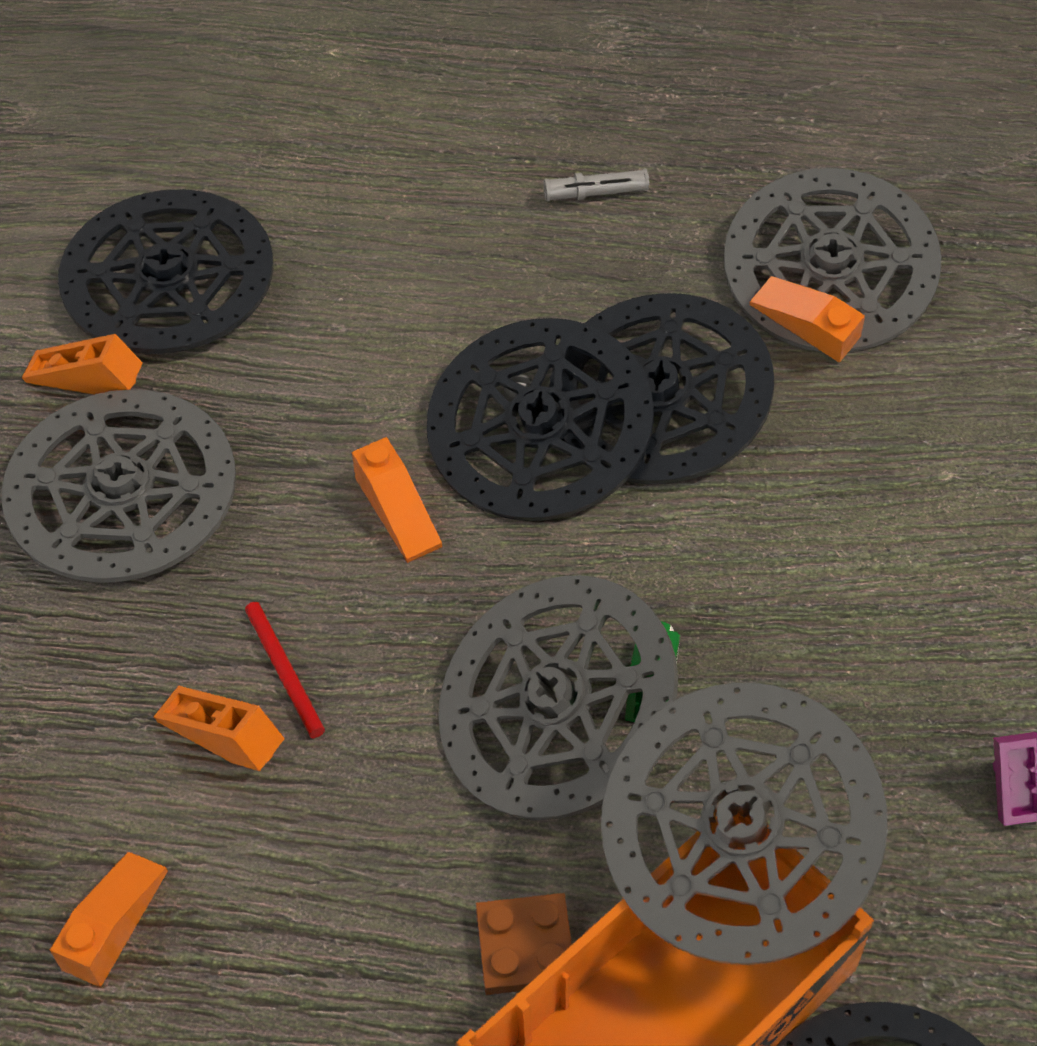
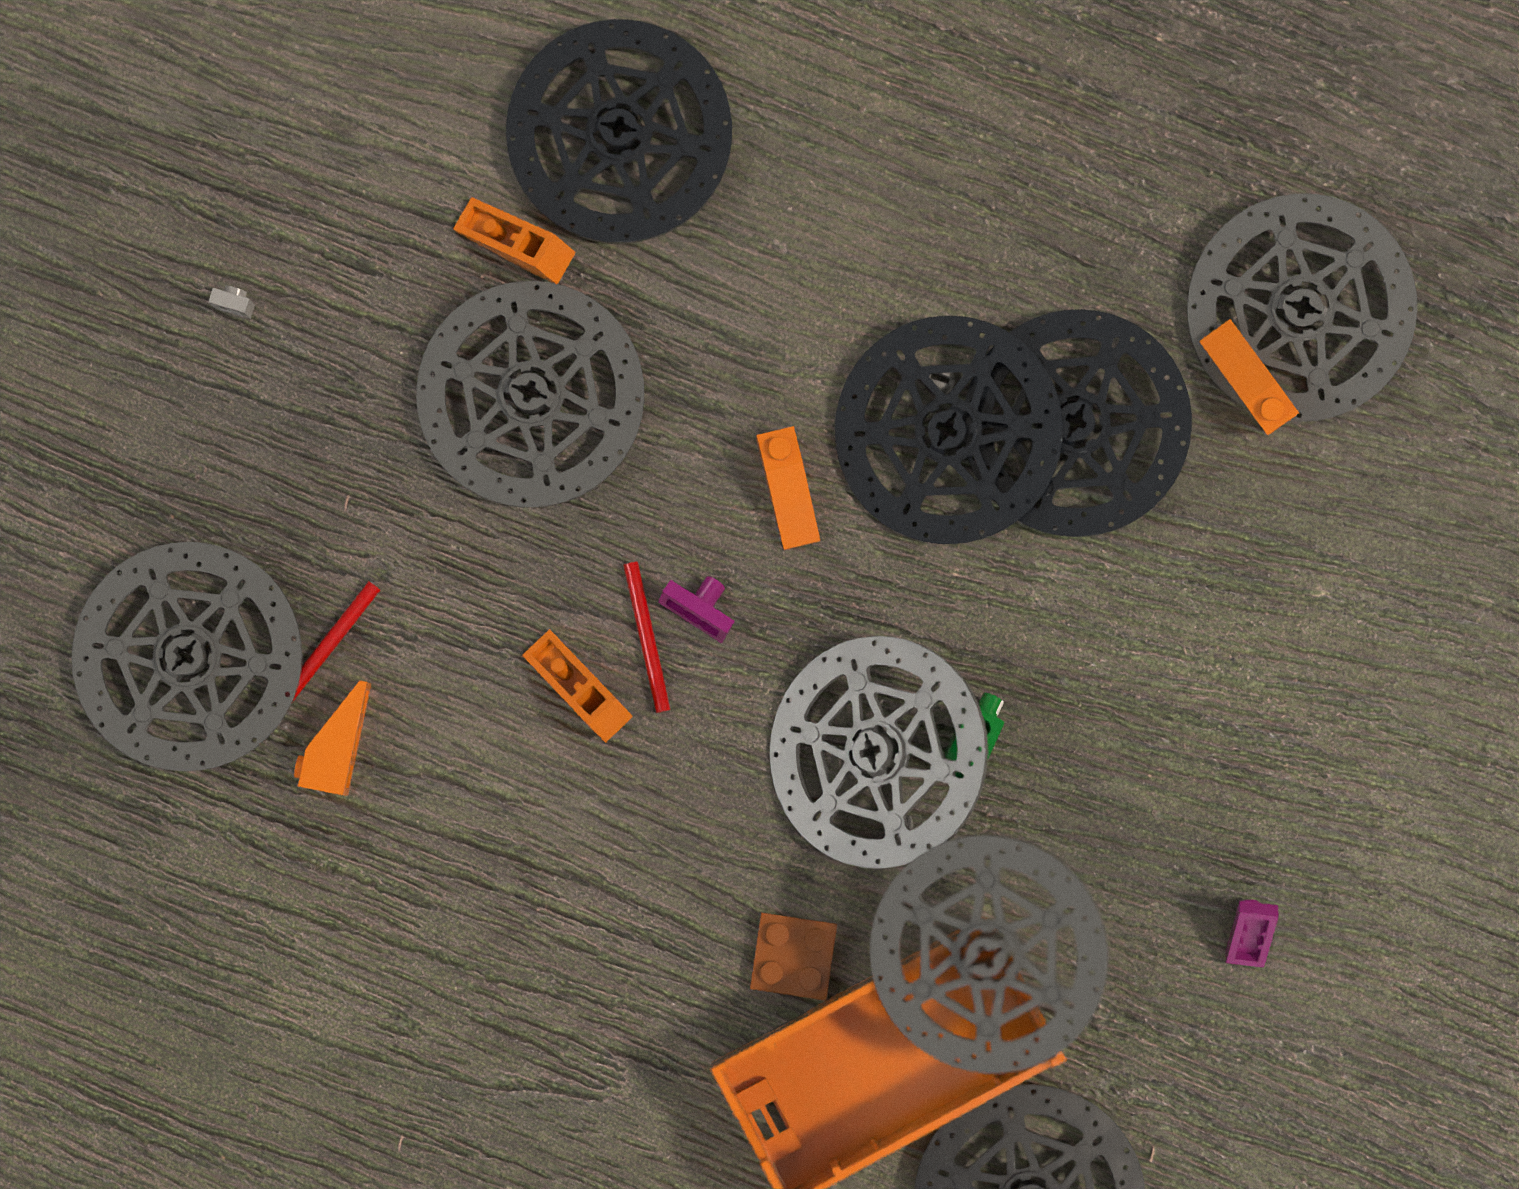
camera: 10 degrees right, 30 degrees up
(107, 919) = (457, 840): orange slope -> none
(331, 625) = (699, 607): none -> magenta tile
(592, 185) = (1090, 133): light grey pin -> none

